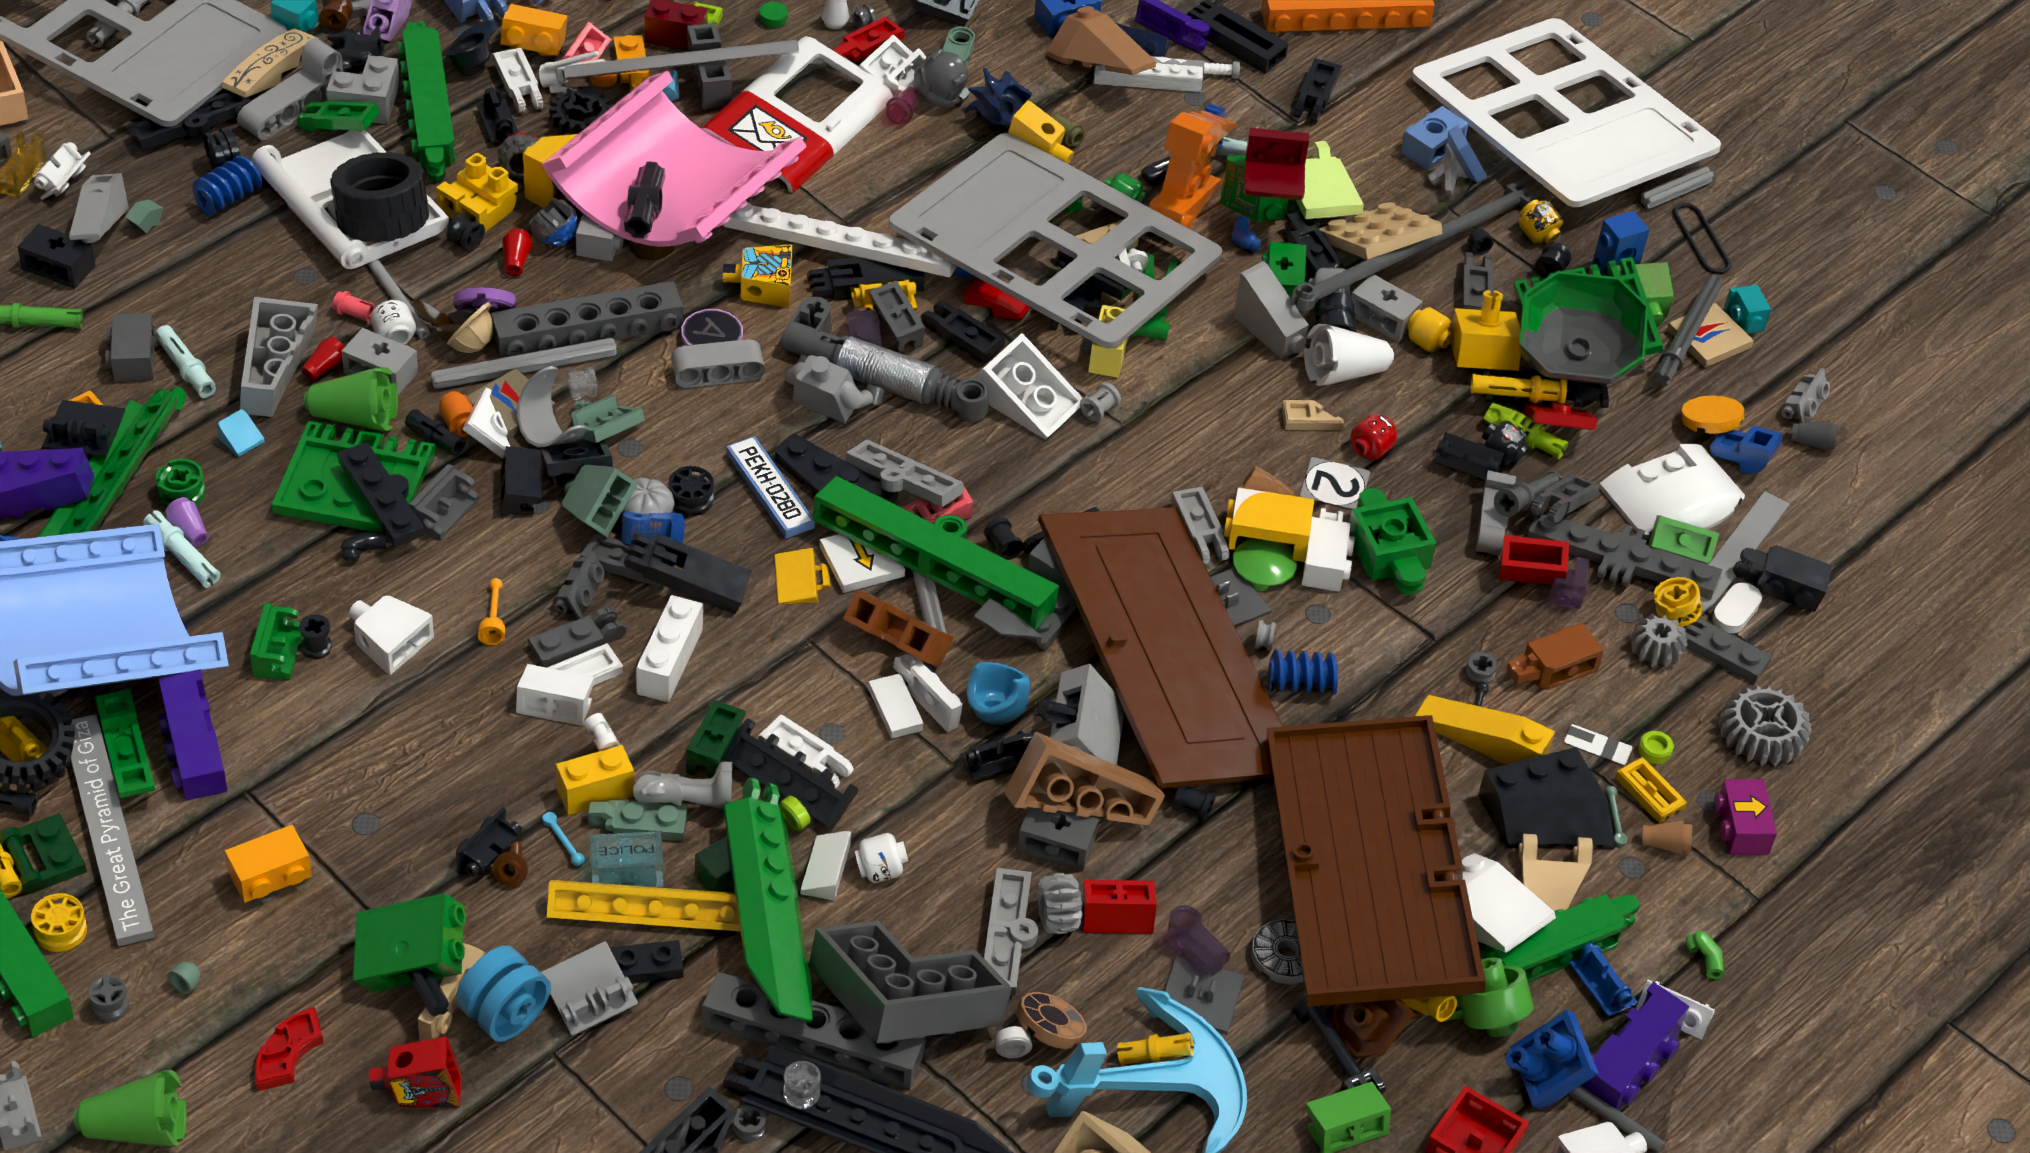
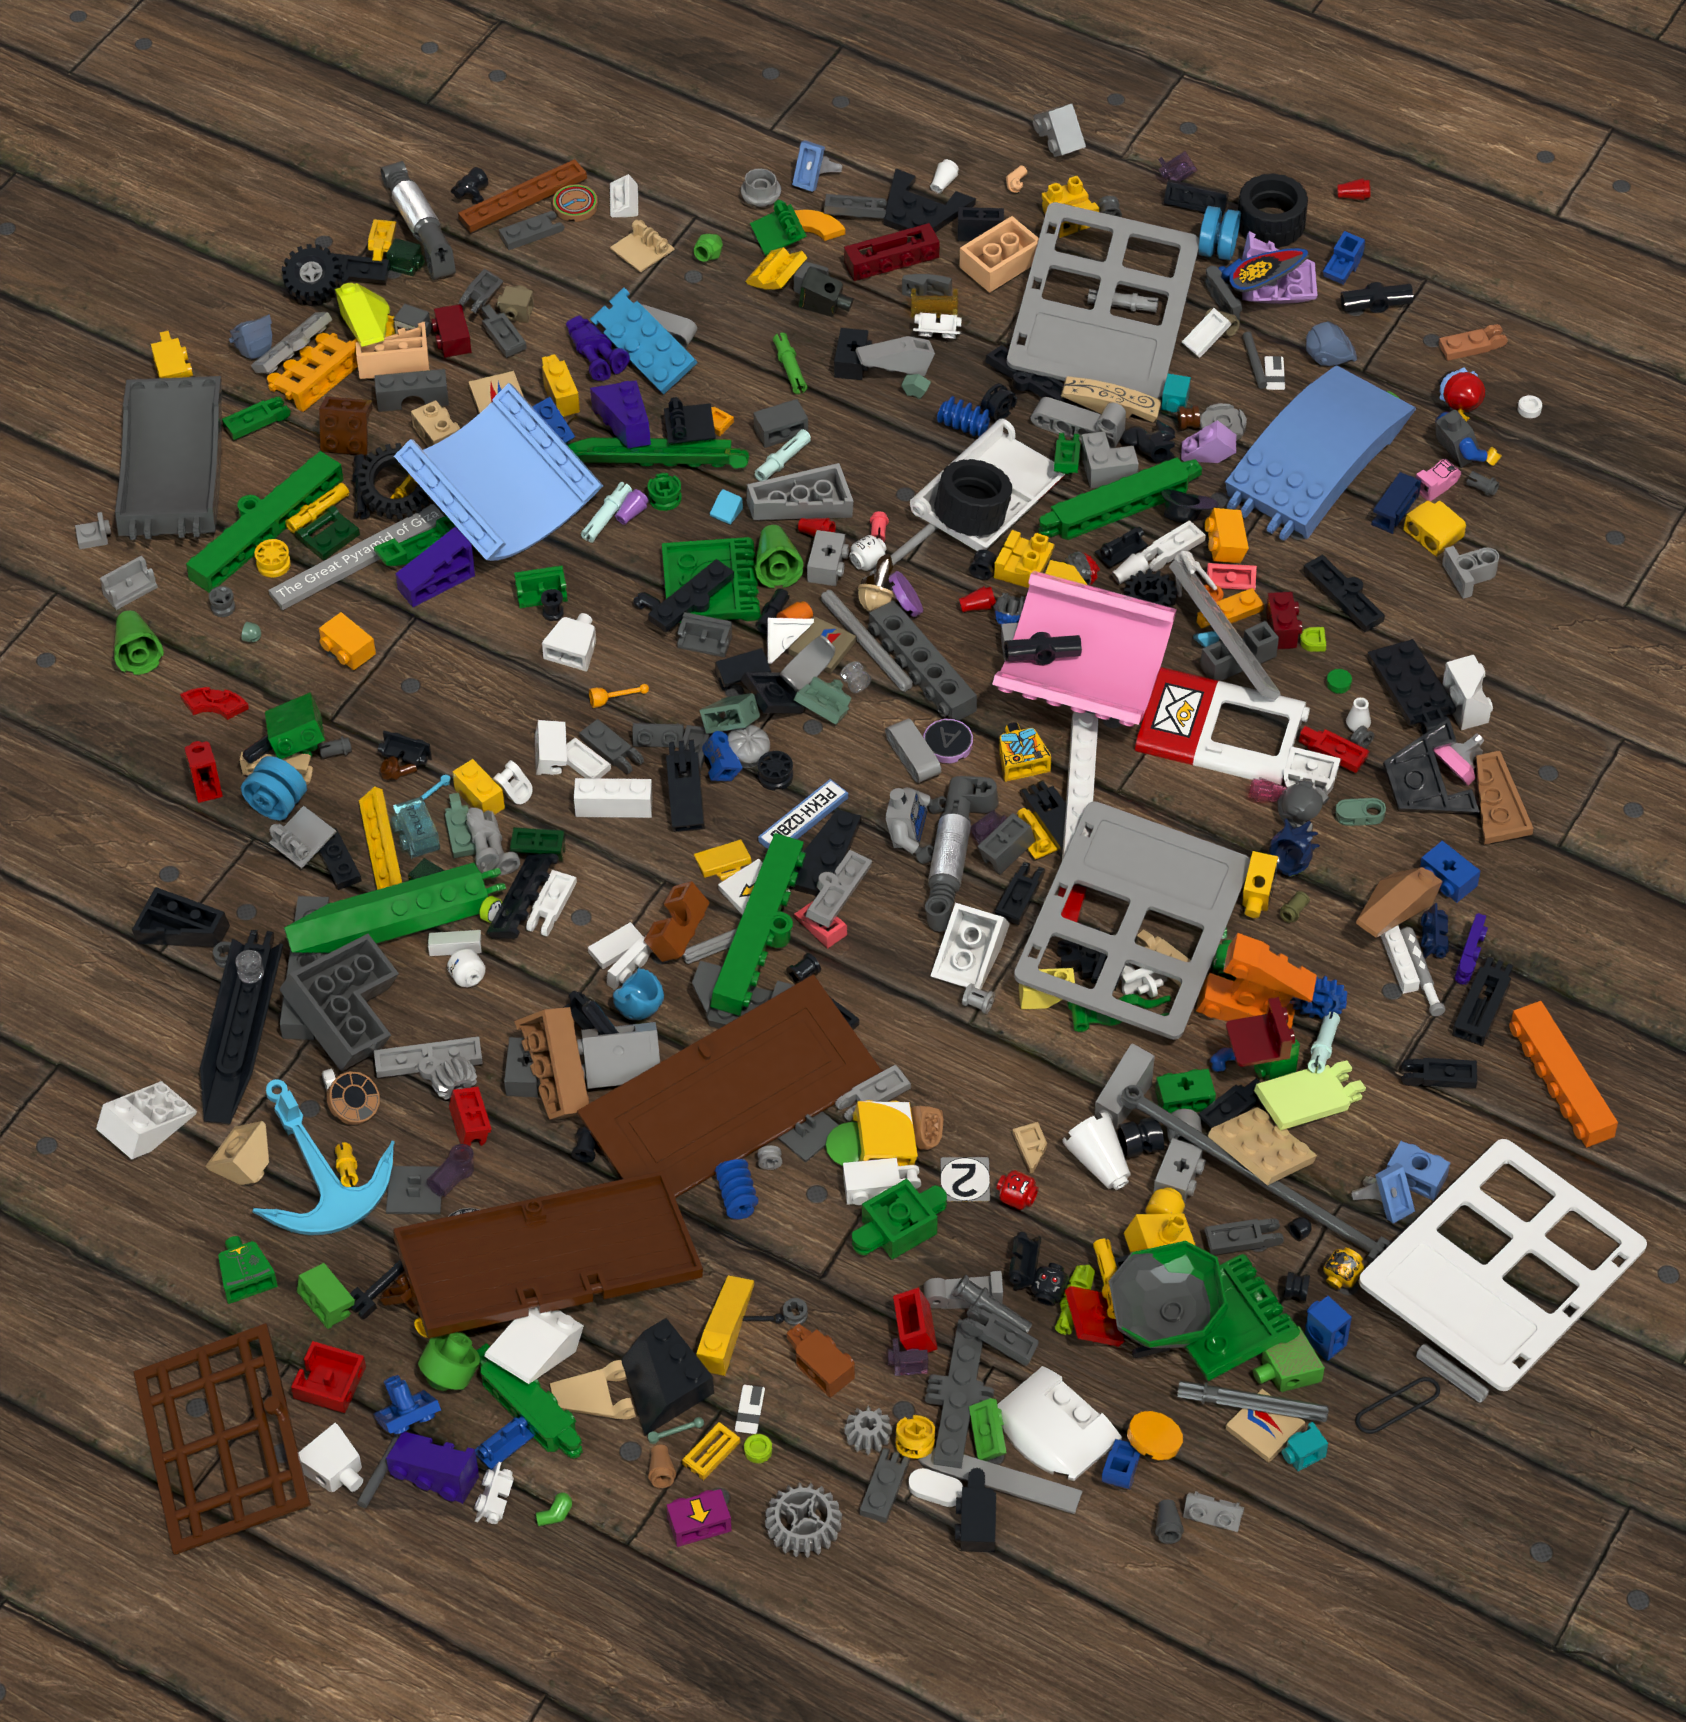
camera: 80 degrees right, 5 degrees up
(535, 116) = (1130, 567): none -> white cone

